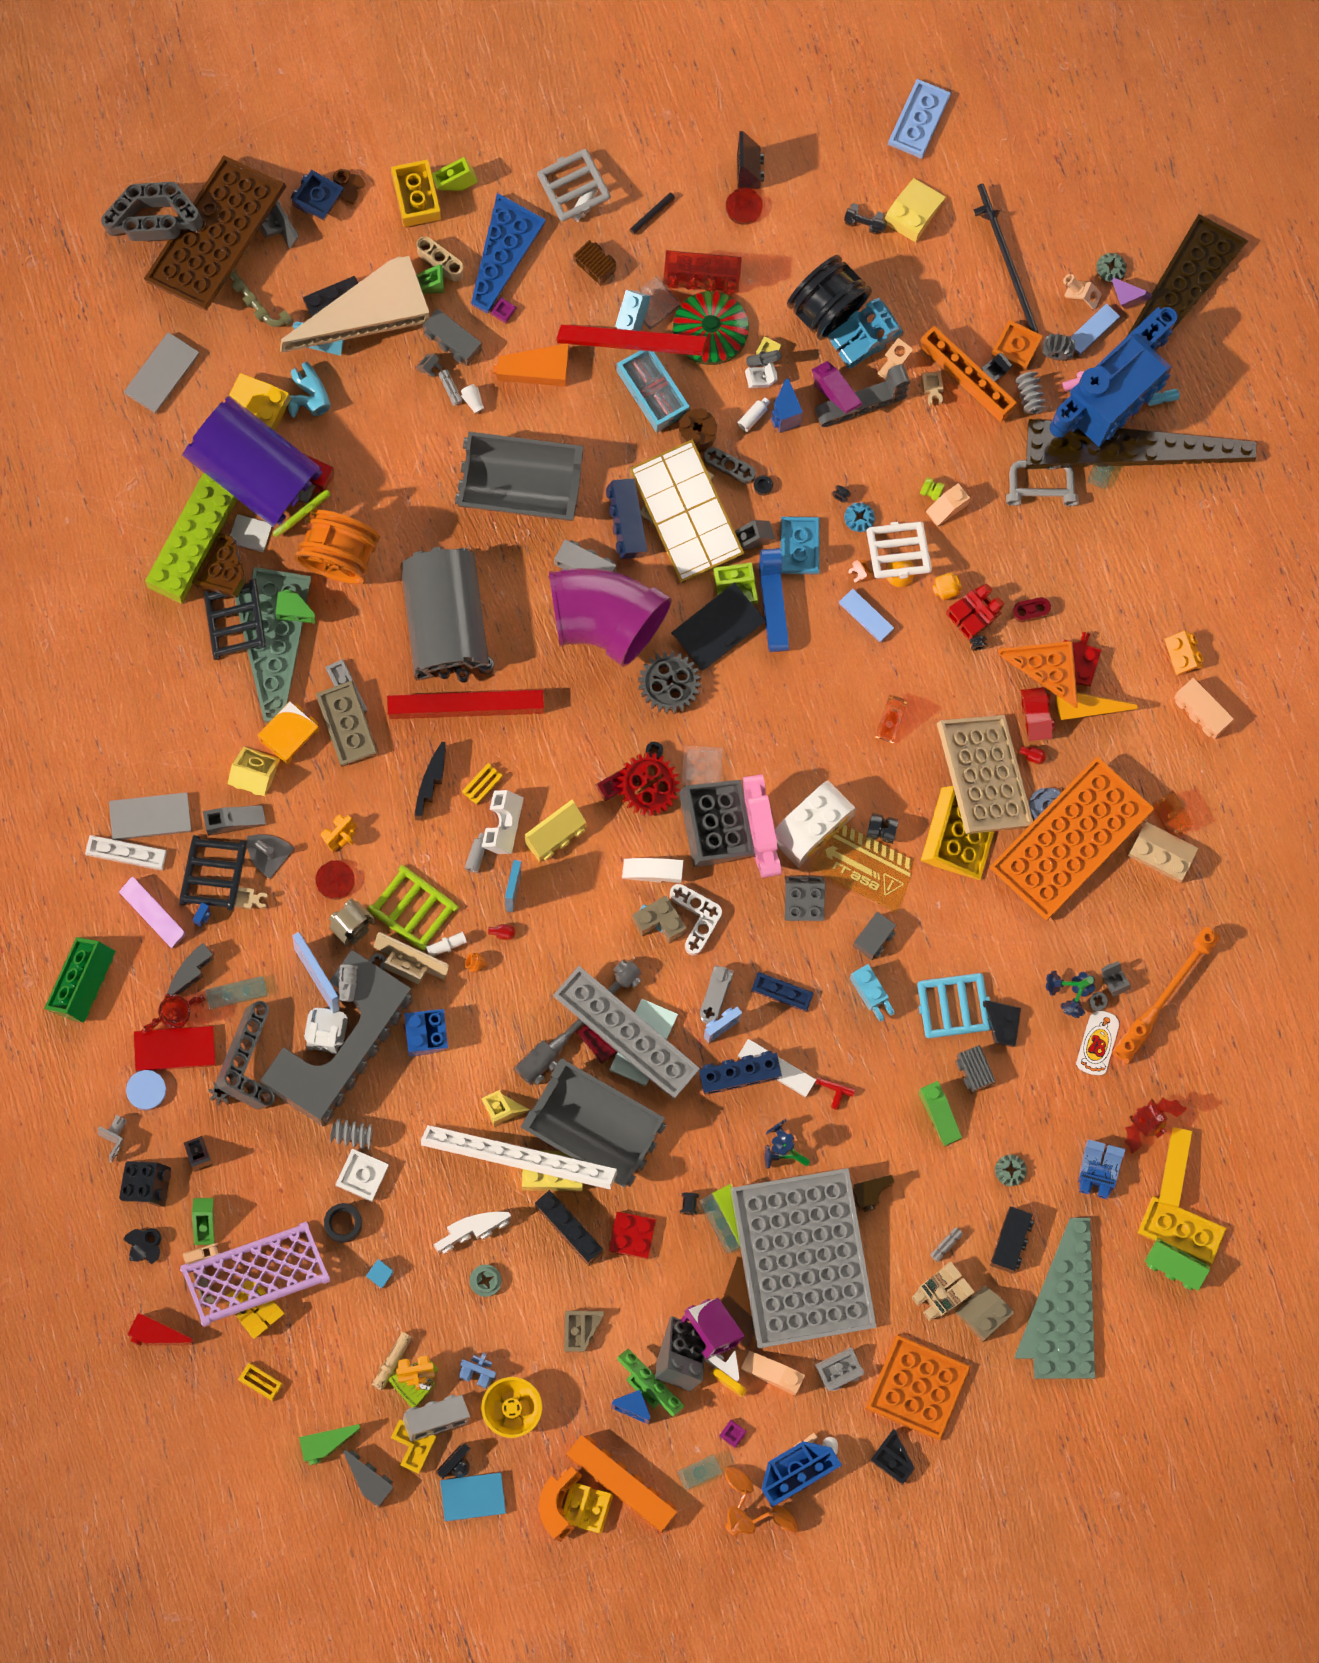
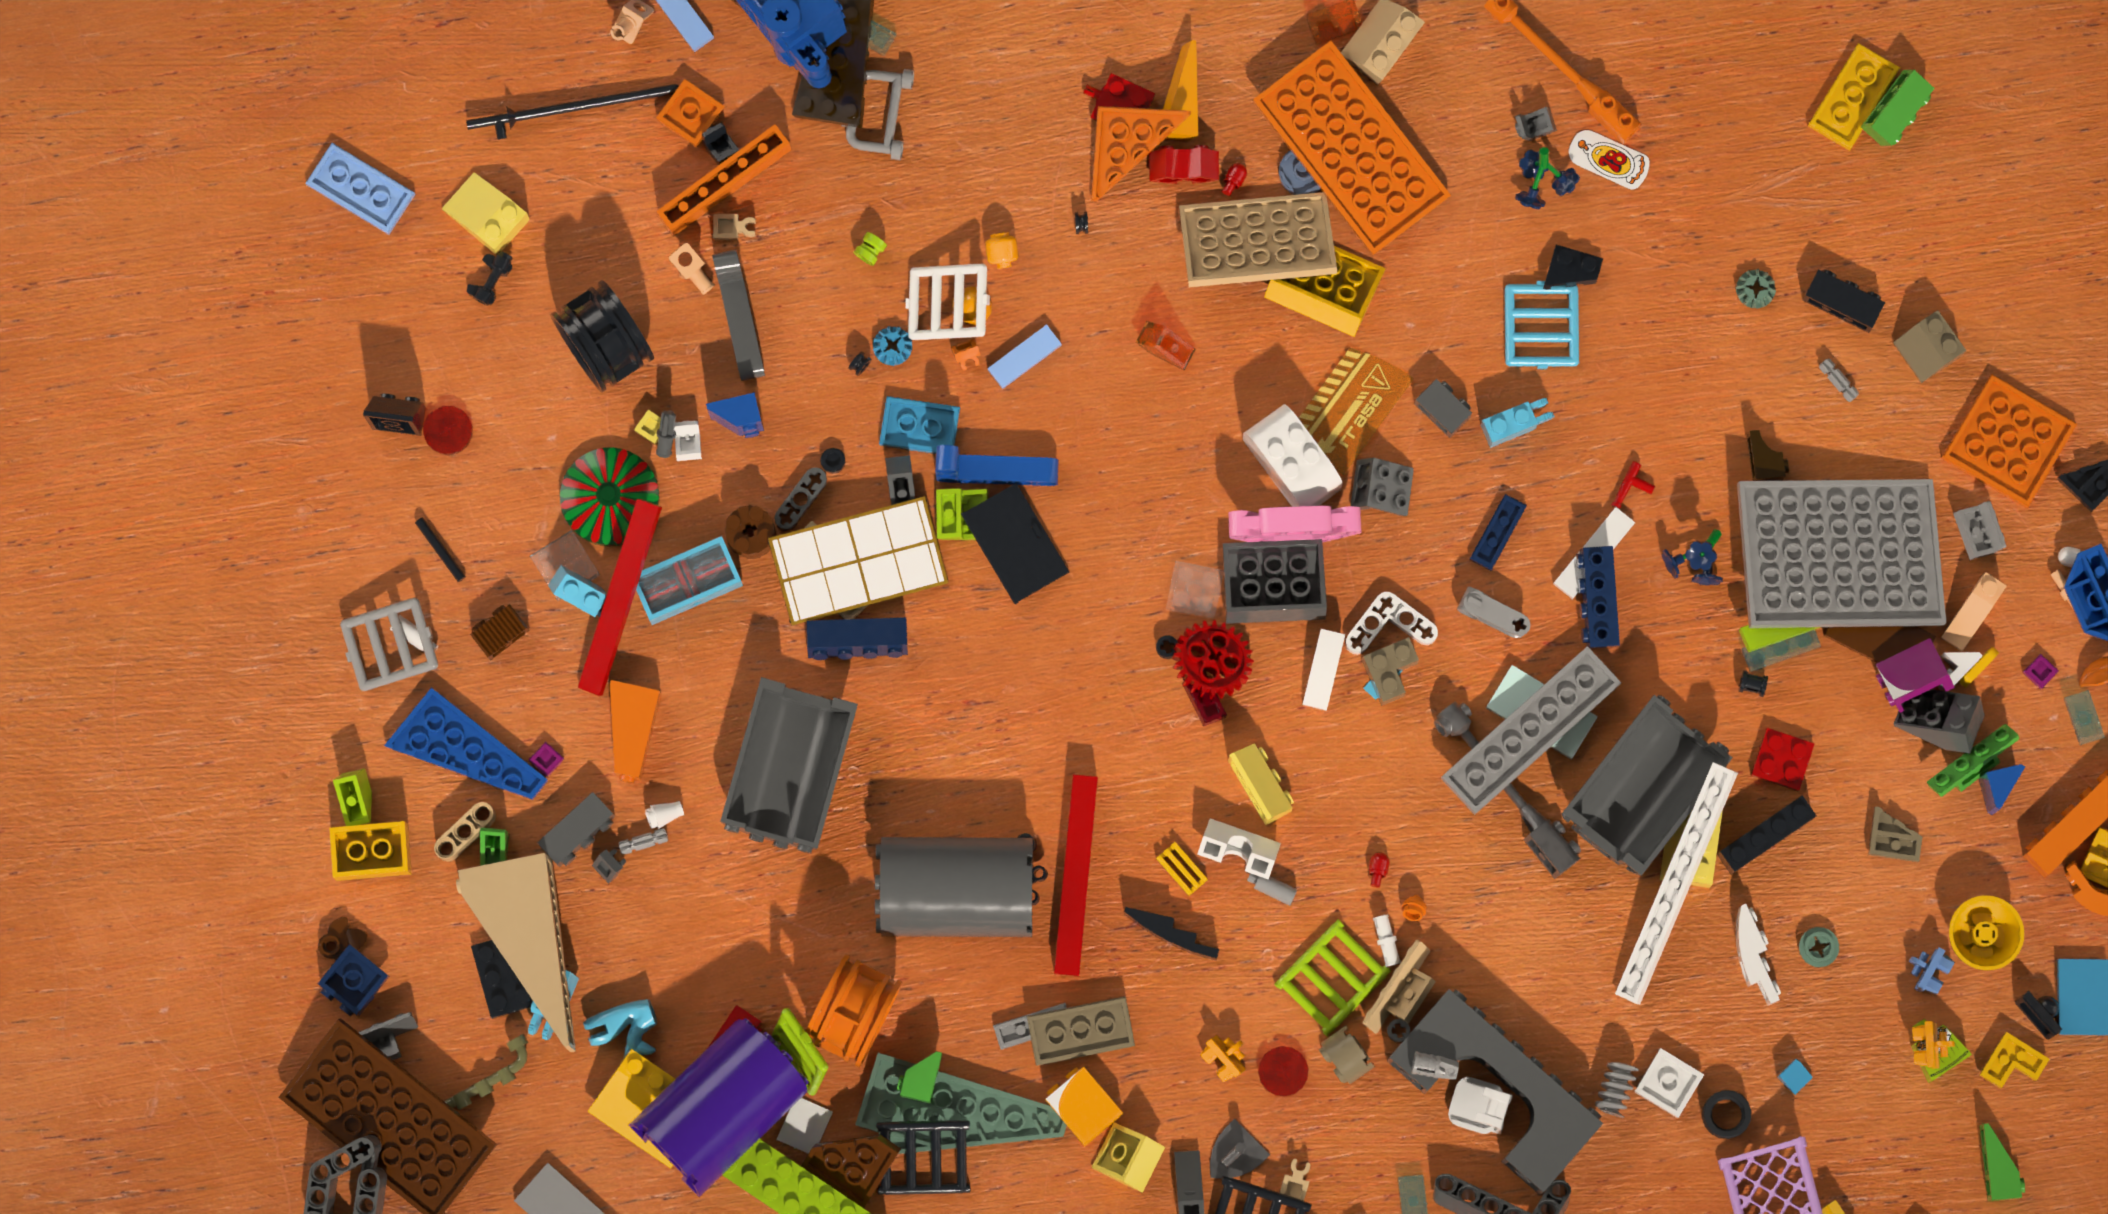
camera: 75 degrees left, 5 degrees up
(316, 972) = (1408, 1107): light blue tile -> none
(372, 1486) = (2057, 1118): dark grey slope -> none
(391, 1362) = (1905, 1074): tan pin -> none
(426, 1032) = (1498, 980): blue slope -> none
(436, 1417) = (1985, 1028): light grey brick -> none
(502, 1108) = (1604, 898): light yellow slope -> none
(513, 886) = (1329, 844): dark azure tile -> none
(573, 556) = (909, 699): light grey brick -> none
(596, 1044) = (1540, 769): dark red plate -> none
(606, 611) = (986, 680): magenta cylinder -> none
(663, 698) = (1101, 625): dark grey gear -> none
(702, 271) = (536, 495): clear red brick -> none
(716, 1028) = (1531, 602): light blue plate -> none
(753, 414) = (736, 458): white cylinder -> none
(834, 387) = (722, 347): magenta slope -> none
(859, 339) = (664, 296): dark azure connector -> none
(882, 828) = (1307, 386): black wheel -> none
(938, 1297) = (1898, 392): tan hips -> none
(940, 1113) = (1675, 362): bright green slope -> none
(948, 505) = (894, 232): light nougat slope -> none
(975, 611) = (1033, 212): red hips -> none
(975, 1069) = (1627, 311): dark grey brick -> none
(1030, 394) = (760, 105): light grey piece -> none
(1030, 609) = (1045, 151): dark red plate -> none
(1058, 347) = (704, 60): dark grey gear -> none
(1061, 1322) = (1947, 256): sand green wing -> none
(1068, 385) = (752, 46): bright pink arm -> none
(1092, 1003) = (1560, 157): dark grey bush -> none
(1099, 1175) = (1767, 180): hips -> none
(1151, 1121) = (1718, 109): clear red helmet -> none
(1175, 1167) = (1777, 91): yellow tile -> none

